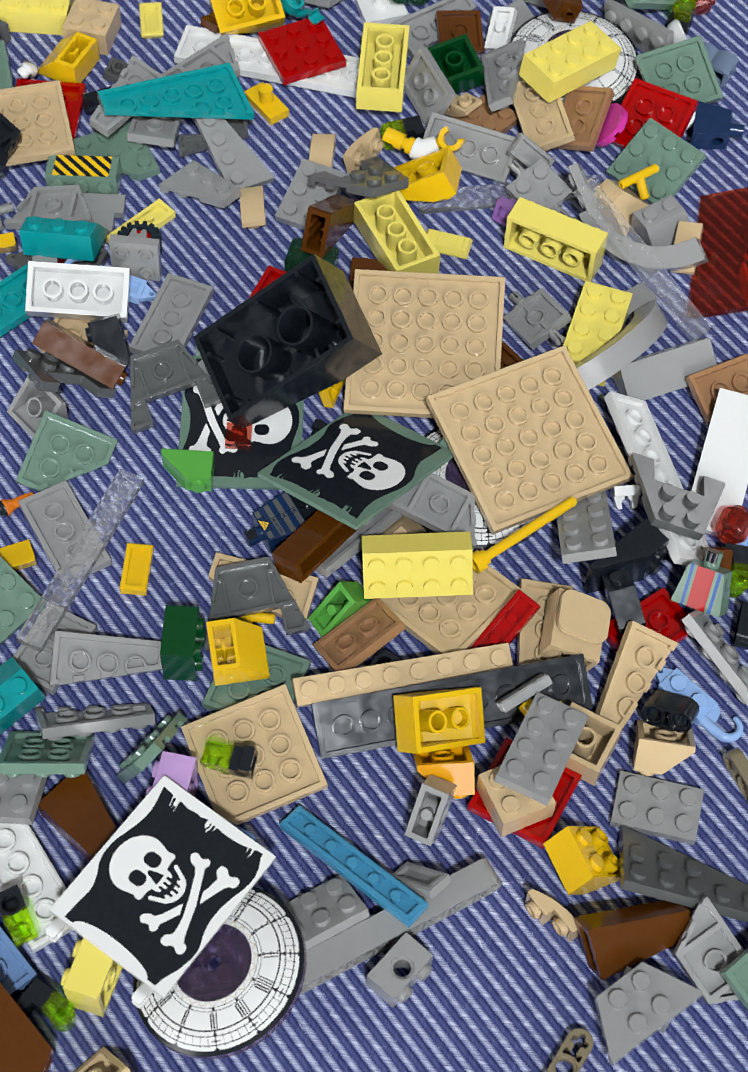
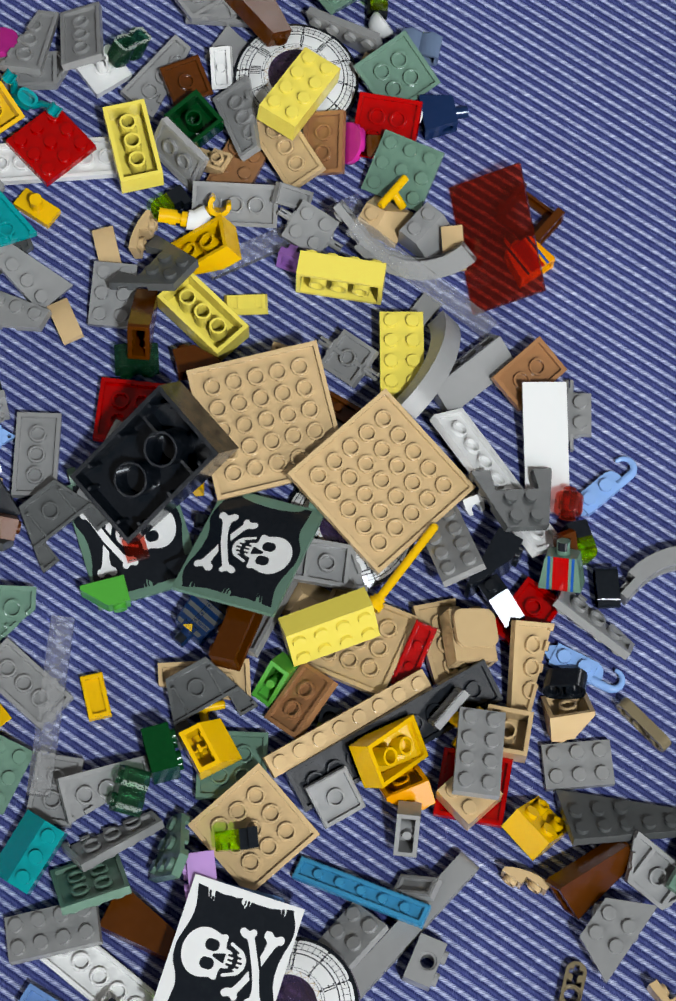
camera: 20 degrees left, 10 degrees up
(130, 670) = (129, 790): none -> clear green brick
(360, 751) = (334, 796): none -> light grey tile
(631, 129) = (372, 144): none -> reddish brown slope

